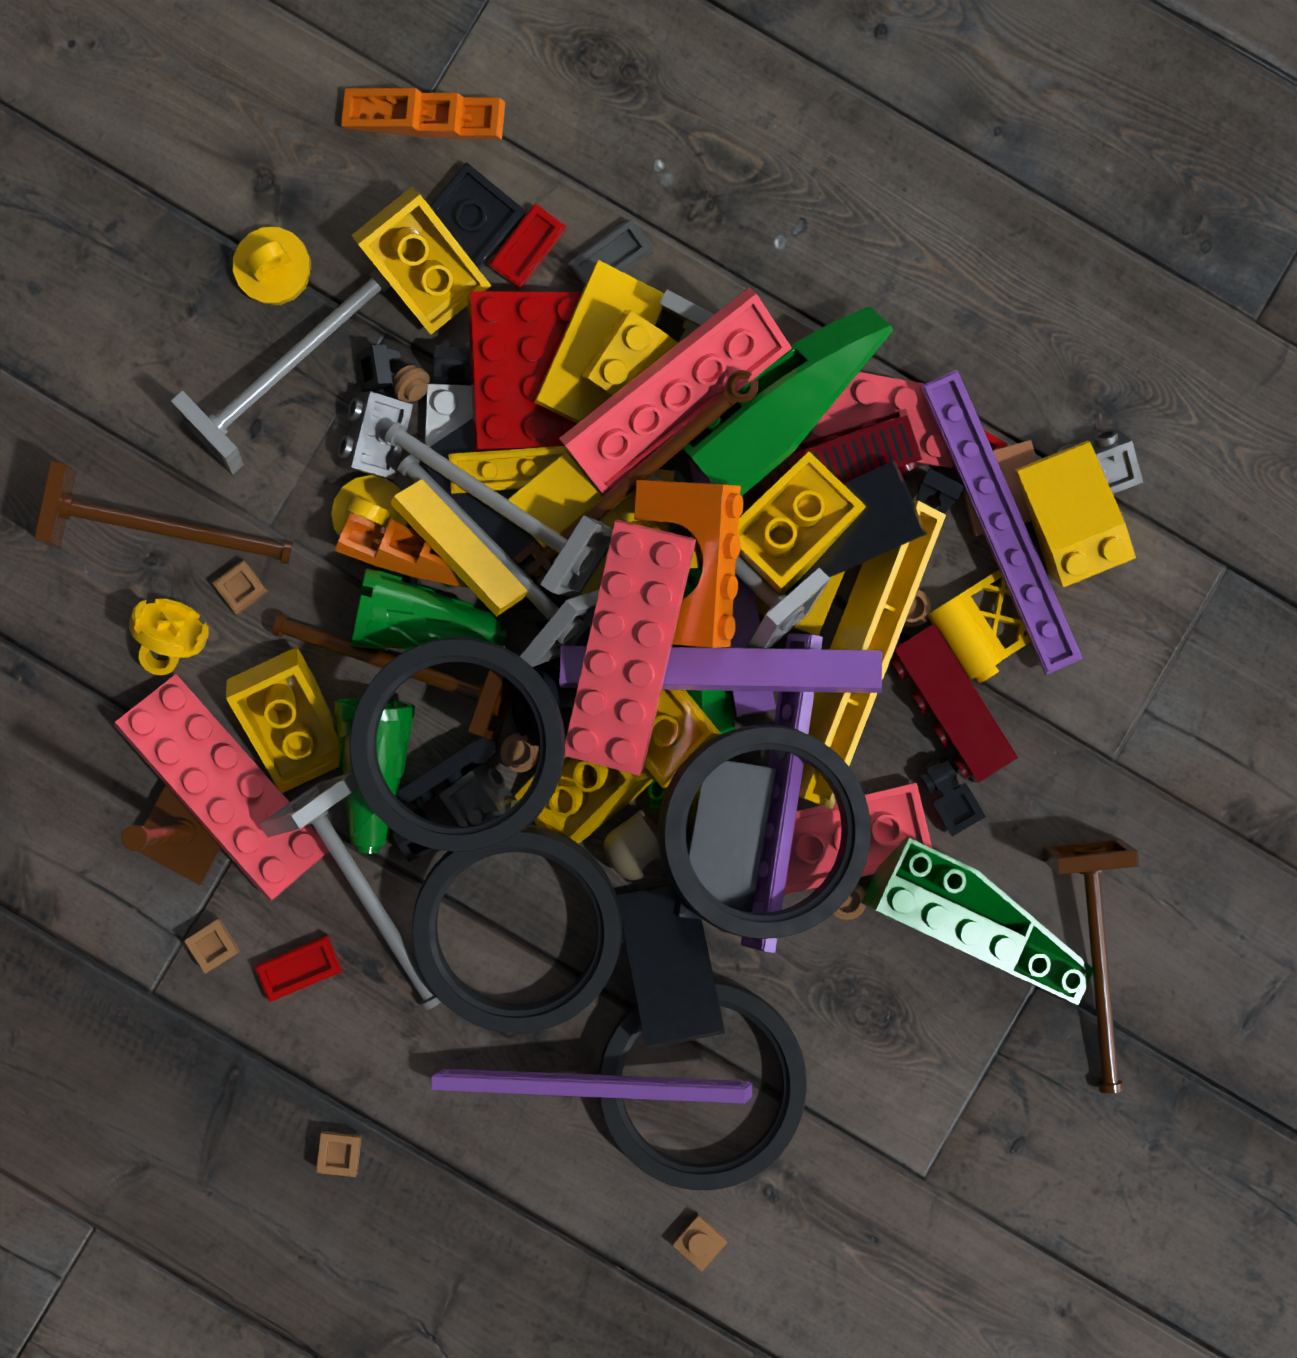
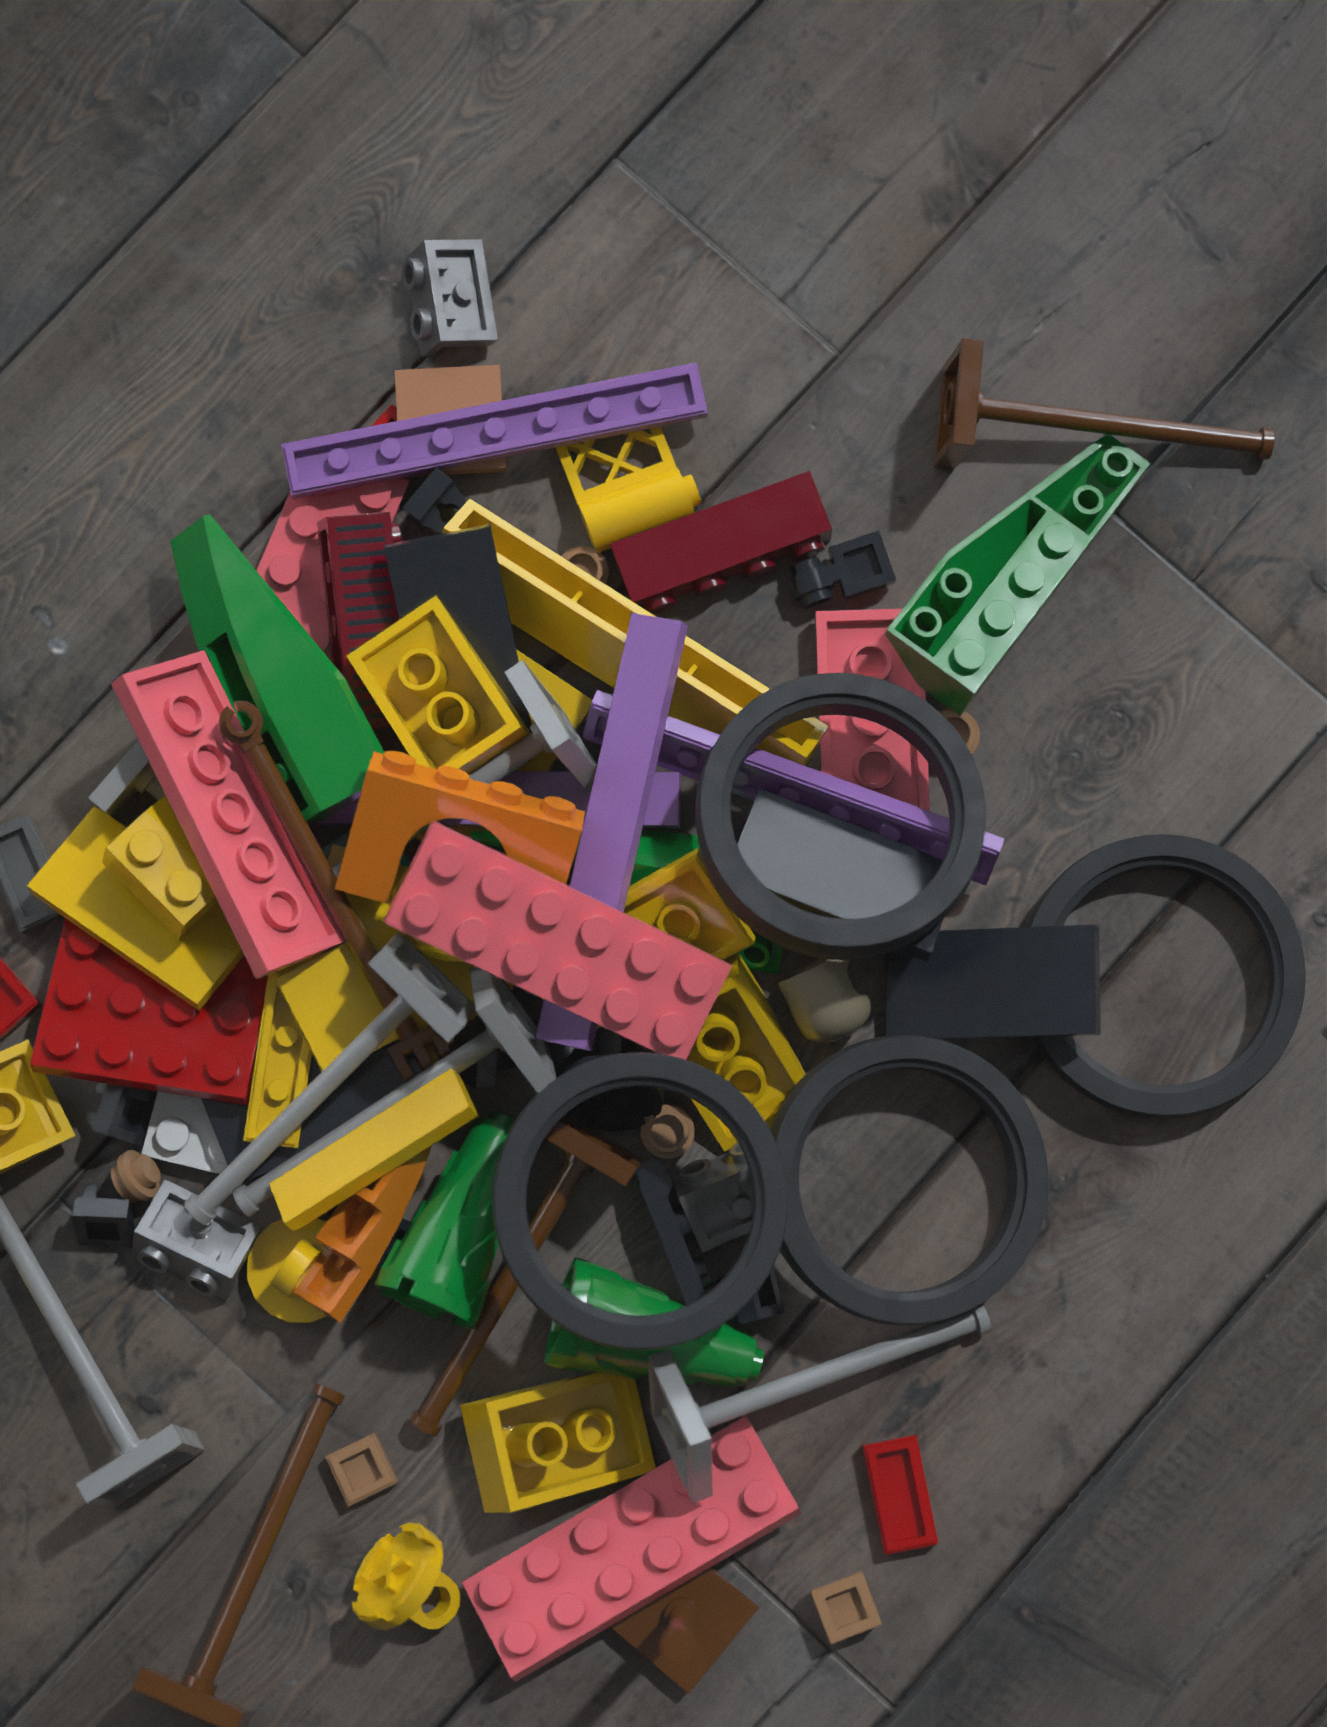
camera: 75 degrees left, 5 degrees down
(339, 1154) = (1163, 1488): medium nougat plate -> none
(593, 1085) = (1135, 1120): medium lavender tile -> none
(1074, 514) = (506, 333): yellow slope -> none

